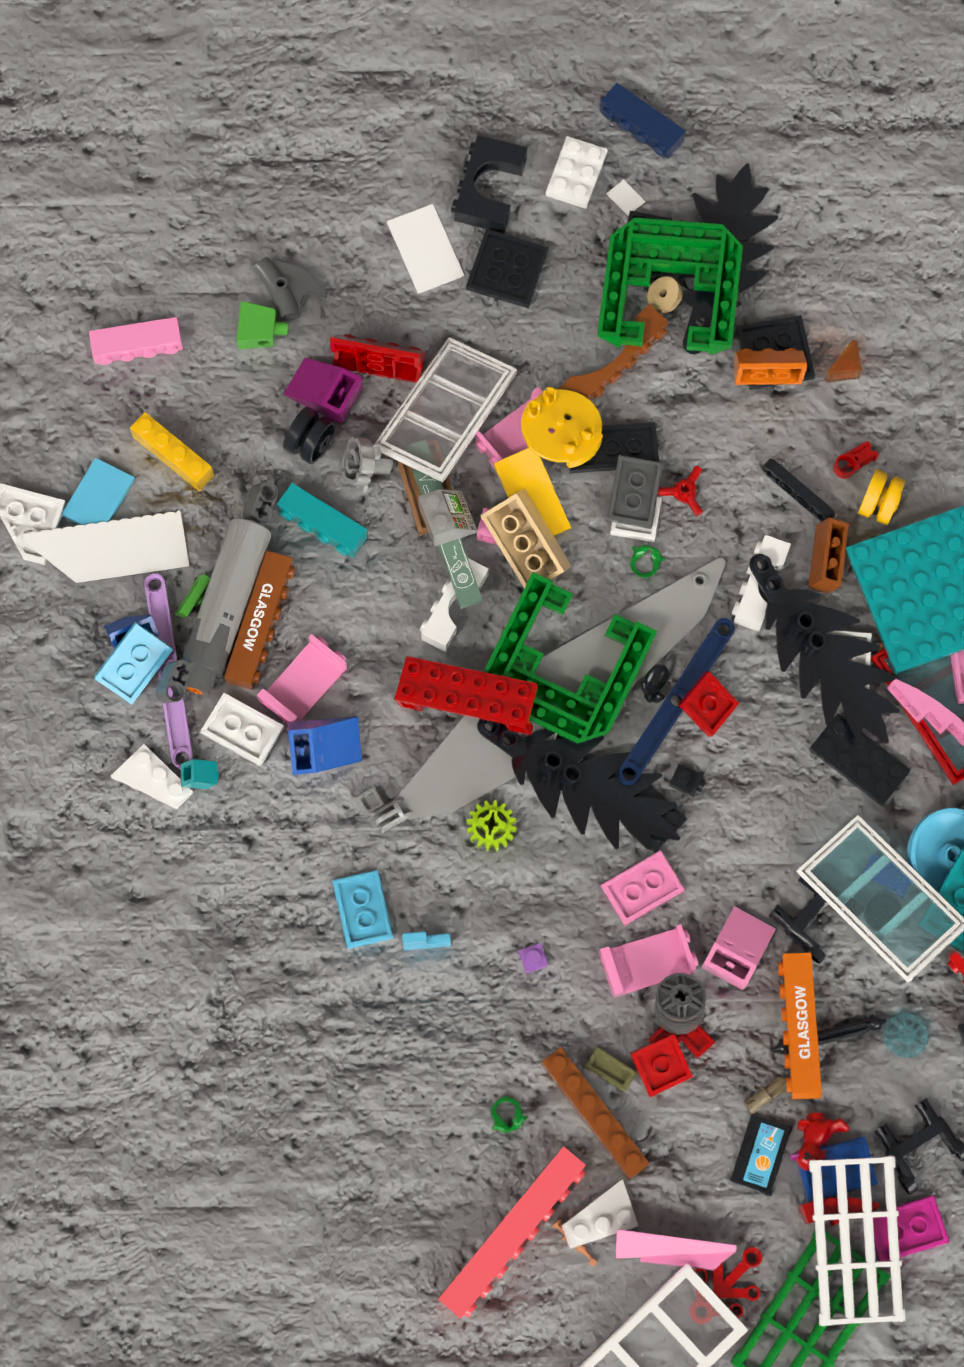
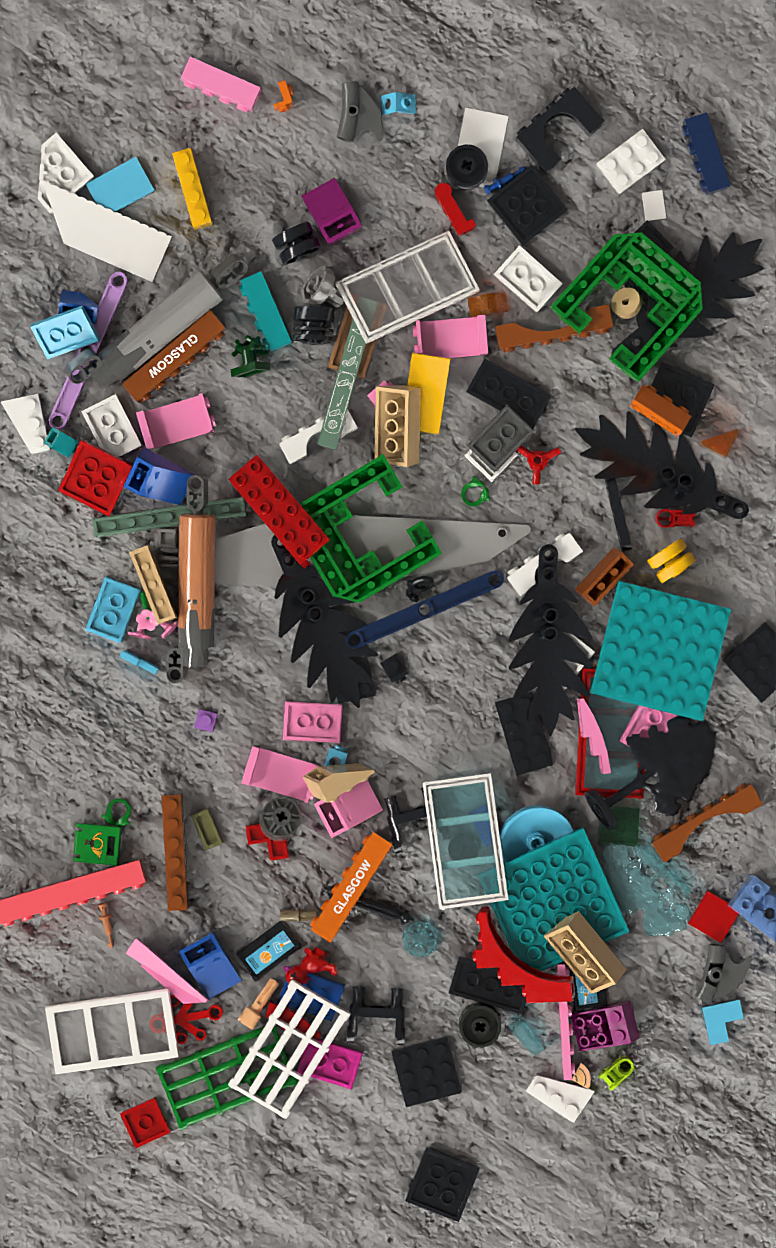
camera: 35 degrees right, 15 degrees up
(193, 596) = (139, 309): bright green plate -> none
(207, 312) = (287, 92): none -> orange bracket
(258, 326) = (316, 132): bright green torso -> none
(258, 786) = (95, 477): none -> red plate
(321, 251) = (399, 103): none -> medium azure bracket
(341, 572) = (249, 353): none -> dark green piece
(357, 780) = (164, 517): none -> sand green tile
(377, 358) = (385, 213): red piece -> none
(378, 499) = (313, 325): none -> black wheel
(390, 849) = (154, 584): none -> tan panel
(408, 887) = (147, 621): none -> bright pink plant
(426, 268) = (463, 156): none -> black wheel
(431, 822) = (195, 584): none -> piece
(439, 316) = (452, 211): none -> red leg
(446, 516) = (351, 371): light grey slope -> none
(466, 266) = (502, 181): none -> blue piece
(499, 828) = (244, 617): lime gear -> none
(503, 1163) = (93, 844): none -> green container
(533, 376) = (487, 304): none -> clear orange slope
(555, 333) = (528, 279): none -> white plate
(573, 439) = (482, 372): yellow piece -> none
(601, 1218) = (136, 922): white wing -> none
(661, 1064) = (241, 849): red tile -> none
(688, 900) = (337, 751): none -> medium azure bracket
(708, 704) = (445, 626): red tile -> none
(708, 926) = (333, 780): none -> tan slope
(712, 1208) = (210, 965): none -> blue slope
(791, 1232) = (251, 1015): none -> light nougat piece
(833, 425) = (678, 482): none -> black plant

